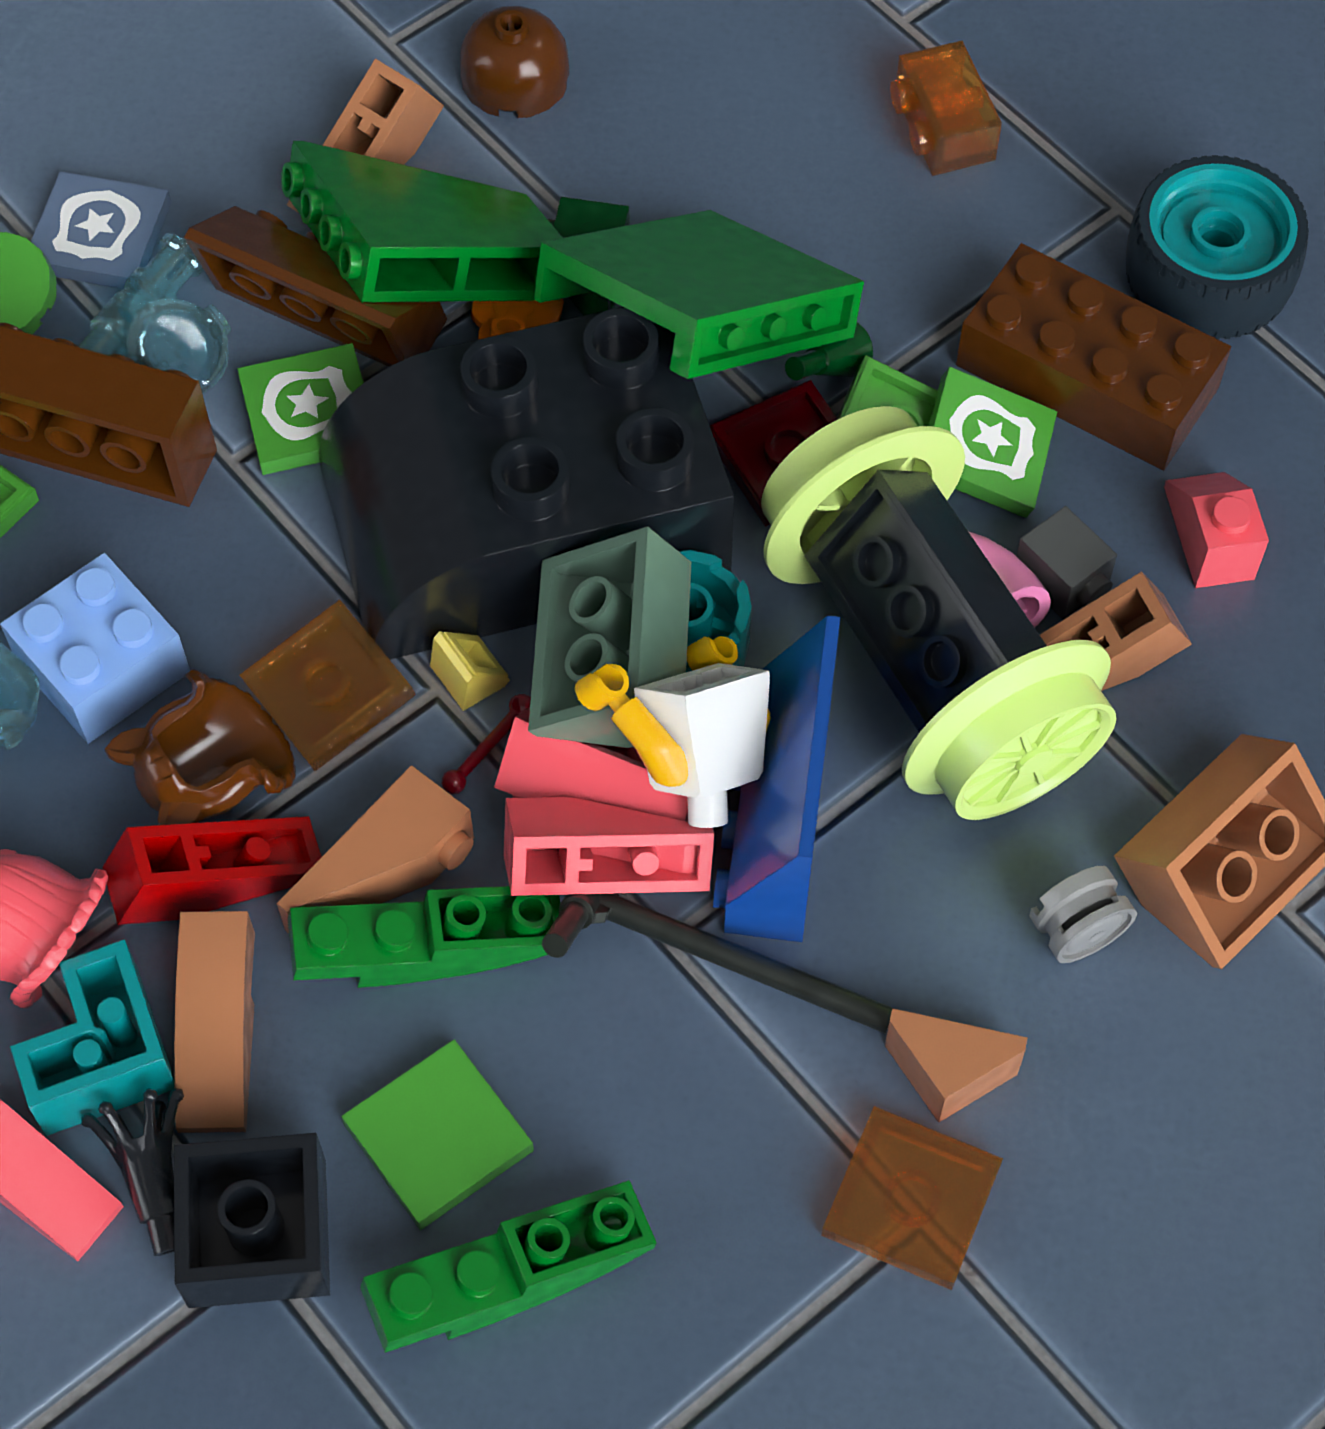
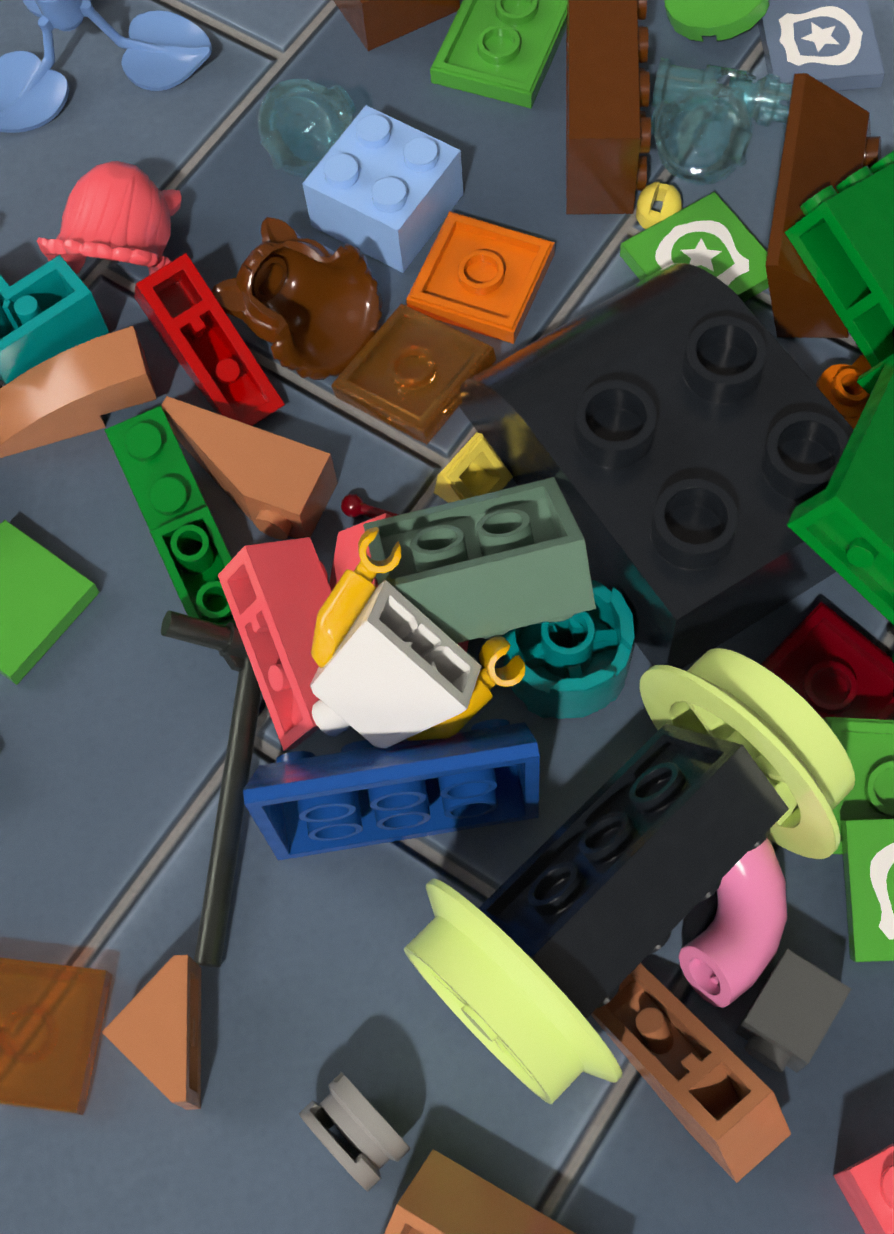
camera: 80 degrees right, 5 degrees up
(224, 431) = (657, 192): none -> light yellow hinge
(235, 598) = (481, 277): none -> orange tile

